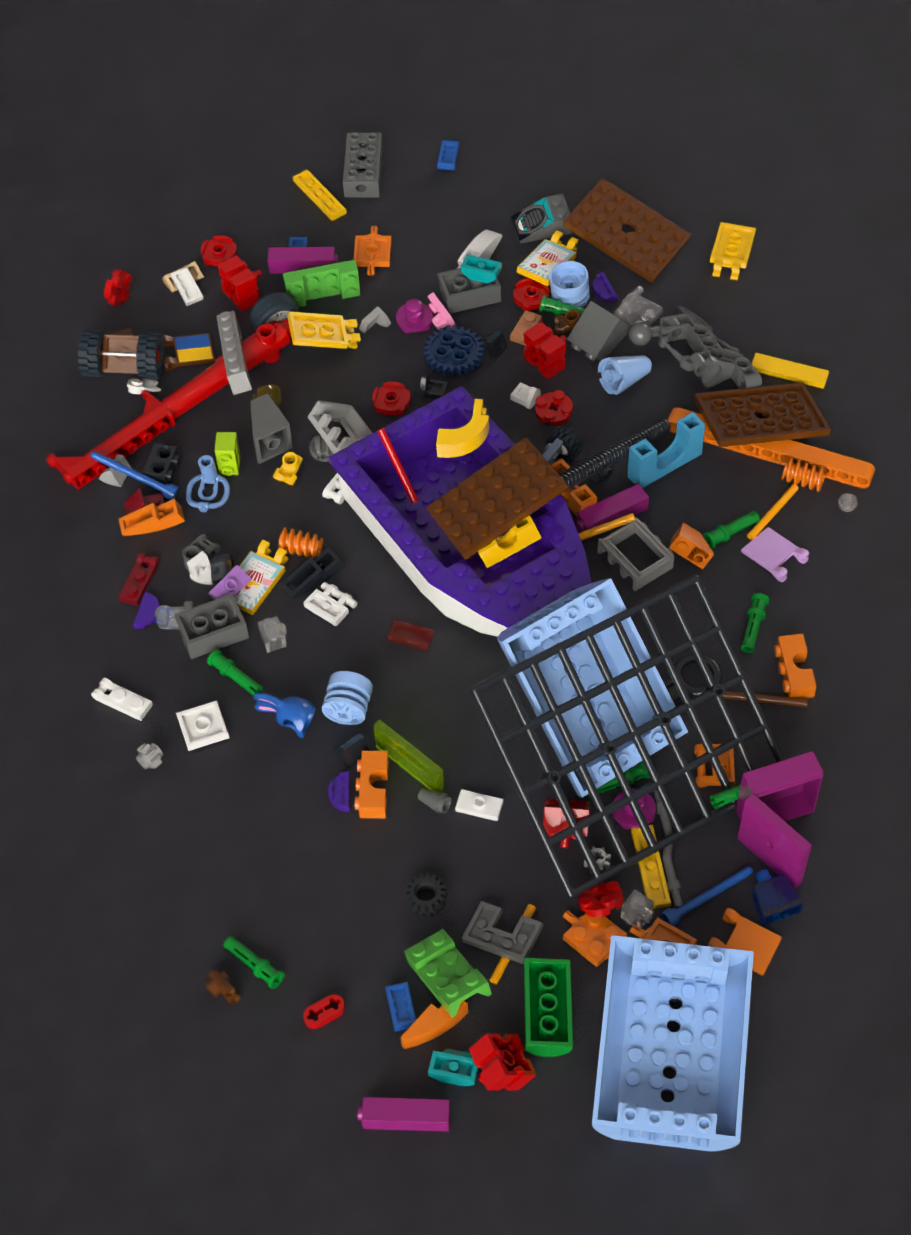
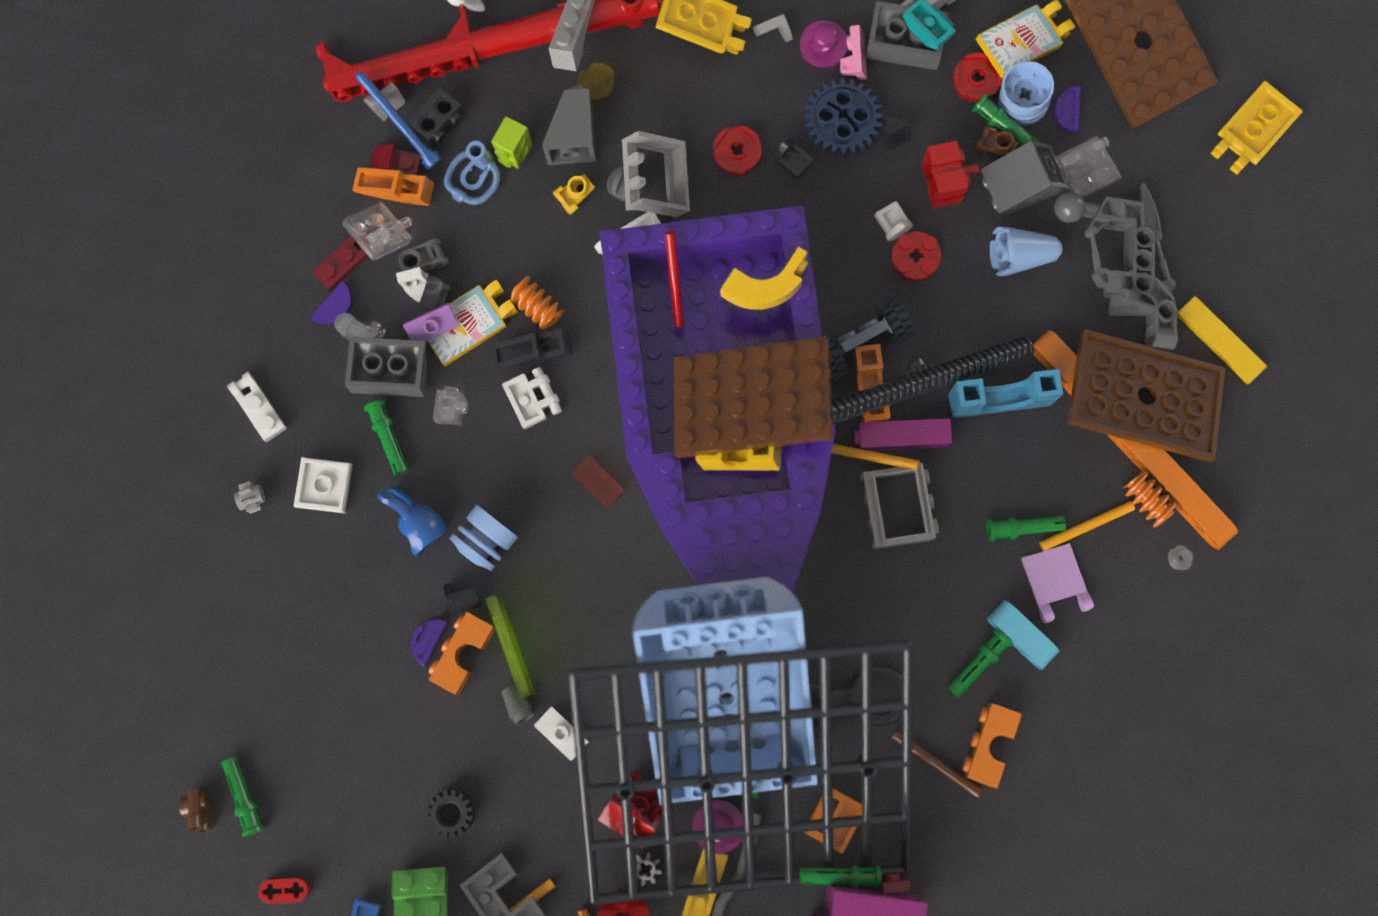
camera: 30 degrees right, 25 degrees up
(156, 547) = (378, 230): none -> clear plate
(526, 322) = (946, 123): nougat plate -> none
(691, 546) = (964, 529): orange slope -> none
(780, 592) = (1023, 634): none -> medium azure beam

